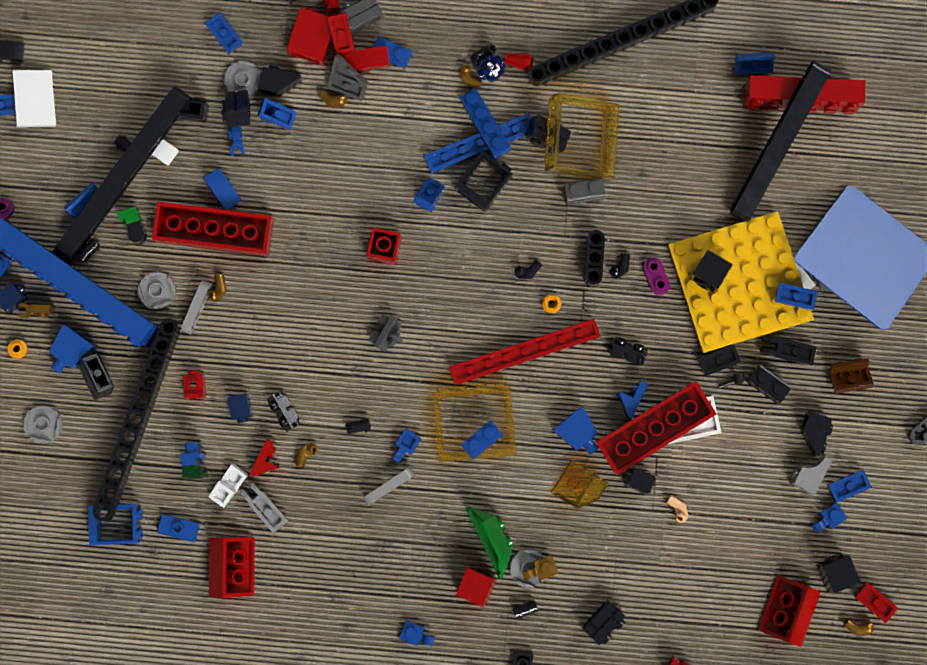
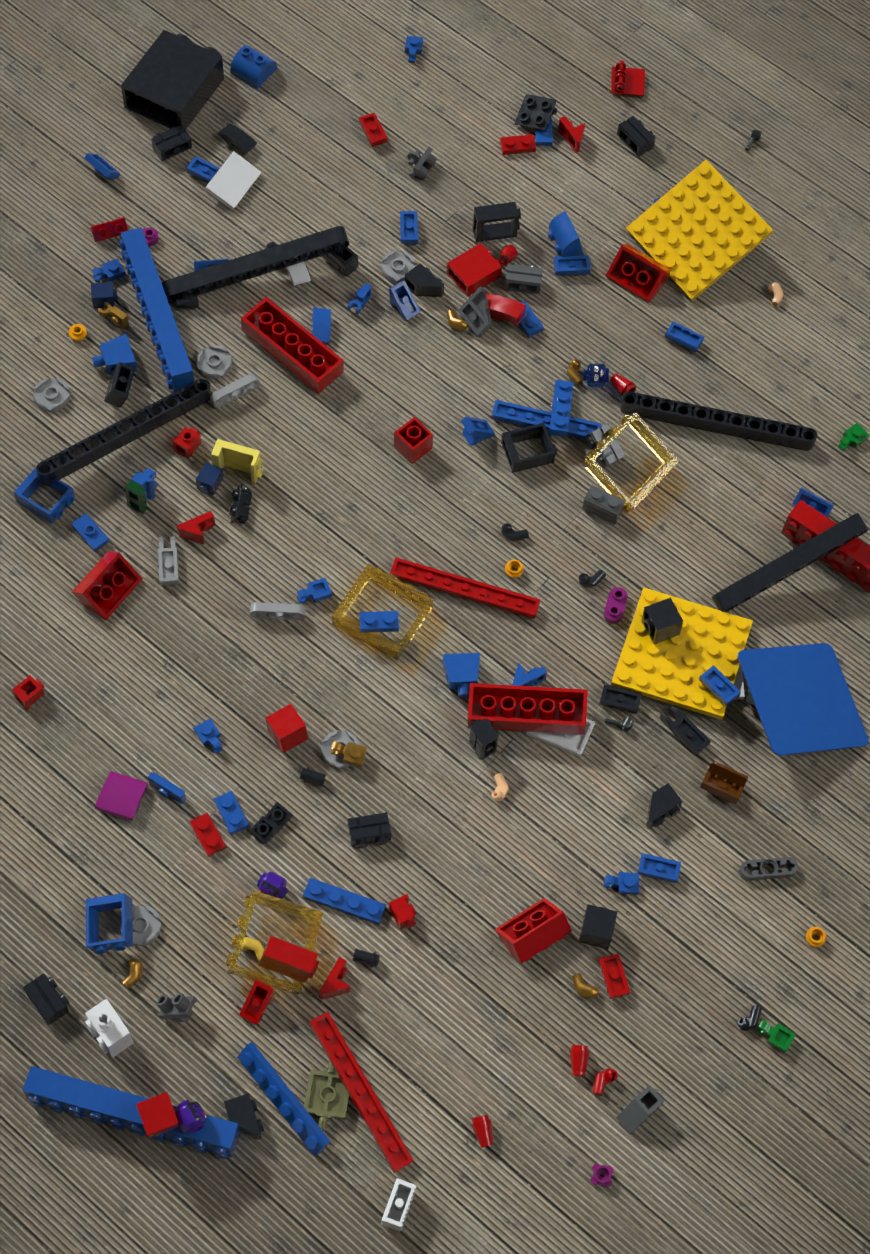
camera: 30 degrees right, 20 degrees down
(135, 225) = (234, 310): leg -> none
(220, 289) = (256, 392): pearl gold arm -> none
(228, 485) = (153, 529): white slope -> none
(234, 379) = (238, 458): none -> light yellow panel
(236, 108) = (377, 277): black brick -> none
(305, 452) = (231, 545): pearl gold arm -> none
(341, 33) = (498, 276): red plate -> none
(359, 426) = (289, 553): black pin -> none
(389, 334) = (366, 503): dark grey hips -> none
(482, 53) = (605, 360): black arm -> none
(492, 538) = (329, 704): green wedge -> none
(579, 486) = (433, 713): clear yellow slope -> none
(597, 249) = (572, 565): black beam -> none
(620, 347) = (554, 647): black hinge -> none
(768, 384) = (648, 742): black brick -> none
(810, 478) = (629, 837): light grey arch -> none

